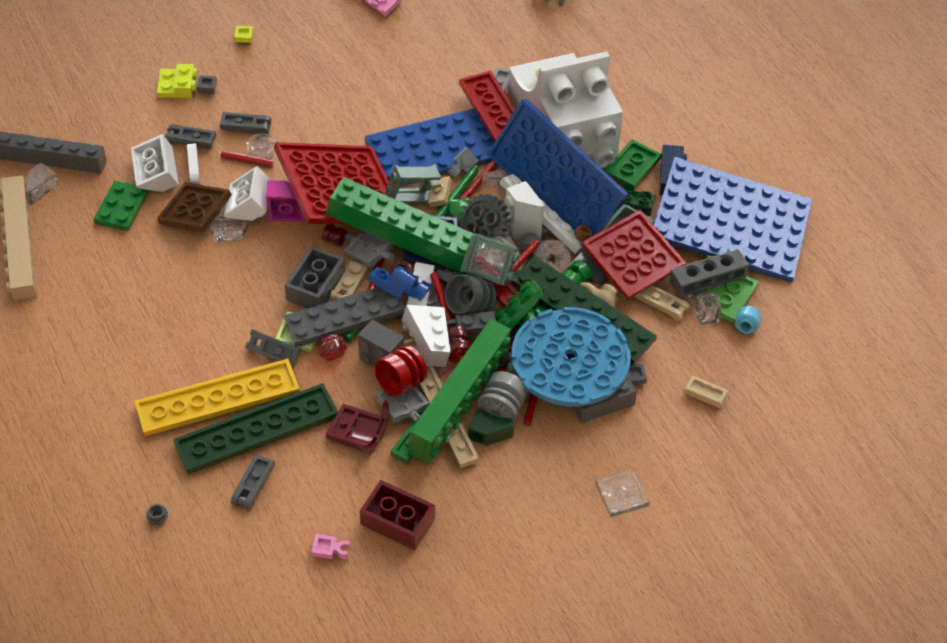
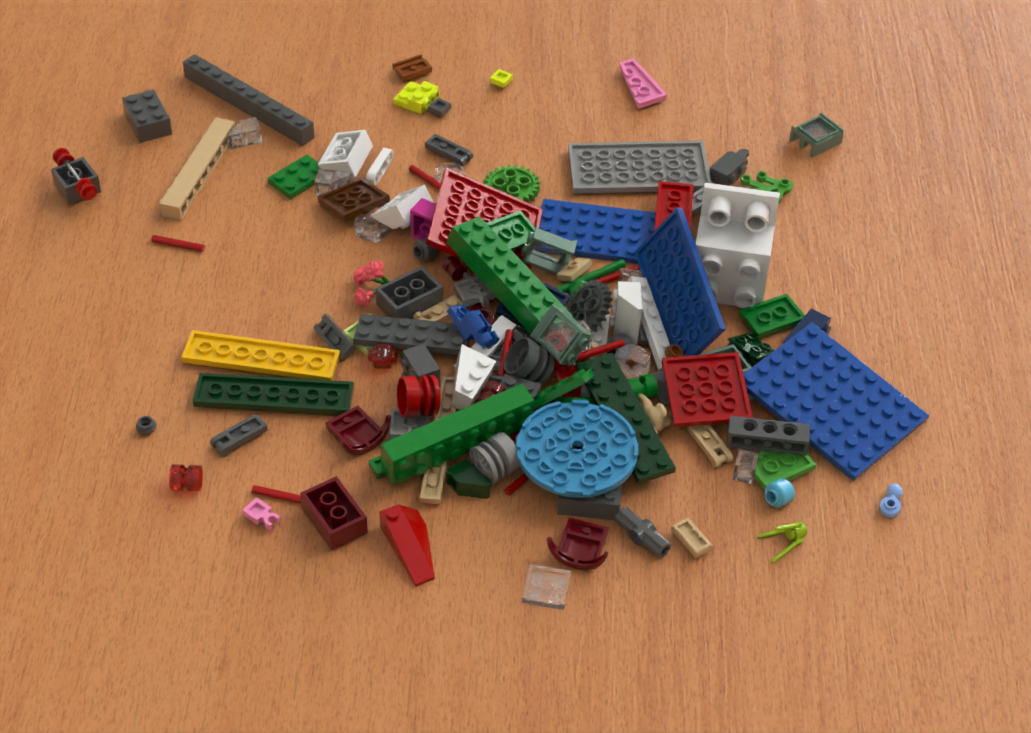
camera: 30 degrees right, 5 degrees down
(51, 320) = (178, 243): none -> red bar
(152, 55) = (412, 68): none -> dark orange plate
(158, 197) = (331, 179): none -> clear slope
(190, 135) = (395, 142): dark grey plate -> none
(234, 547) = (183, 477): none -> clear red wheel
(272, 270) = (368, 273): none -> coral plant
(295, 227) = (424, 252): none -> dark grey head
(317, 130) = (515, 182): none -> bright green gear
(331, 521) = (276, 494): none -> red bar
(371, 175) = (512, 229): none -> green plate
(424, 72) = (636, 166): none -> light grey plate
(464, 161) = (614, 252): light grey plate -> none
(478, 509) = (410, 541): none -> red wedge
(504, 43) = (729, 167): none -> dark grey hinge
(557, 41) = (782, 186): none -> bright green plant
(625, 441) = (580, 545): none -> dark red piece
(637, 374) = (635, 494): dark grey plate -> none
(665, 406) = (642, 532): none -> dark grey piece
(780, 348) = (793, 532): none -> lime plant
(832, 277) = (893, 492): none -> light blue plate

